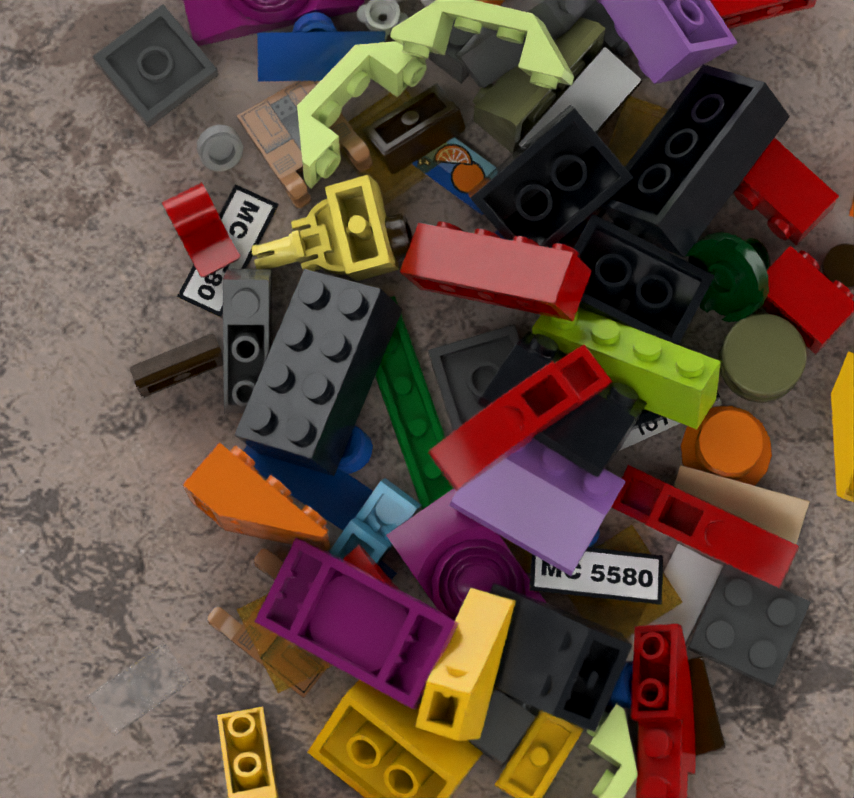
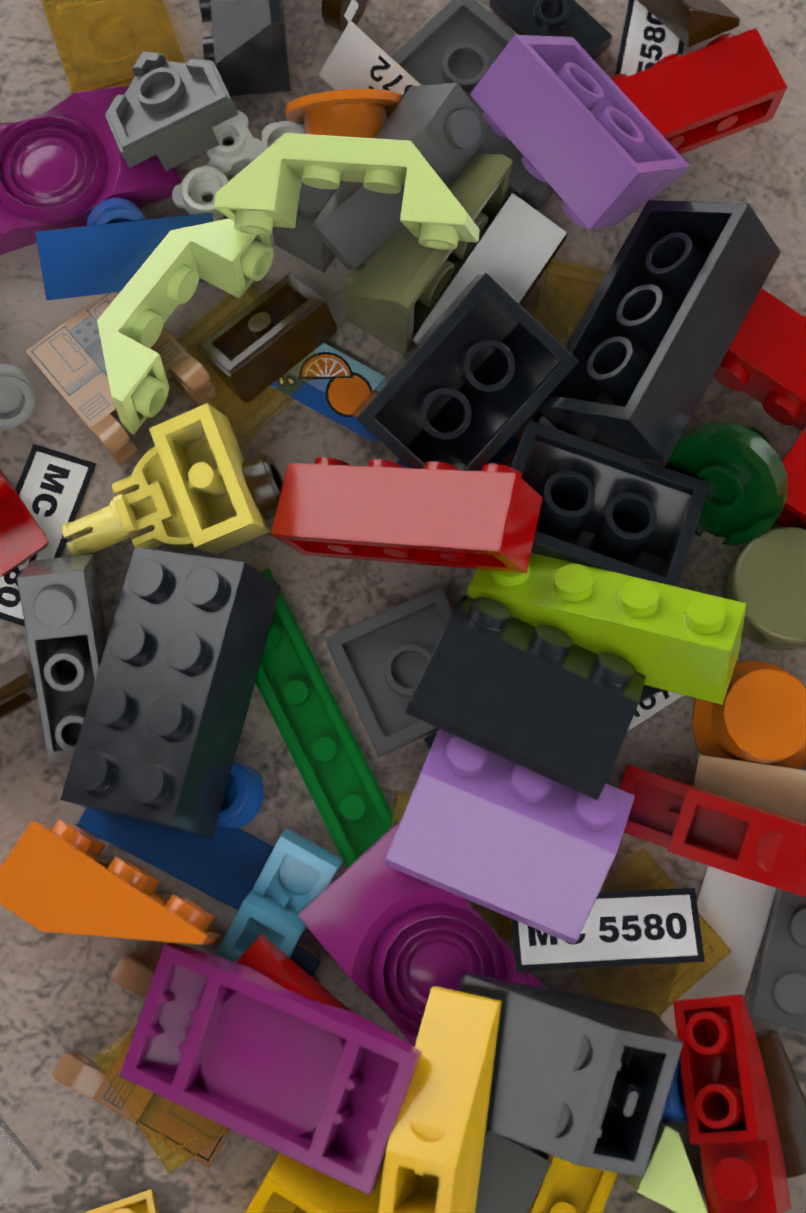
camera: 10 degrees left, 0 degrees up
(519, 416) = (469, 729): red slope -> none

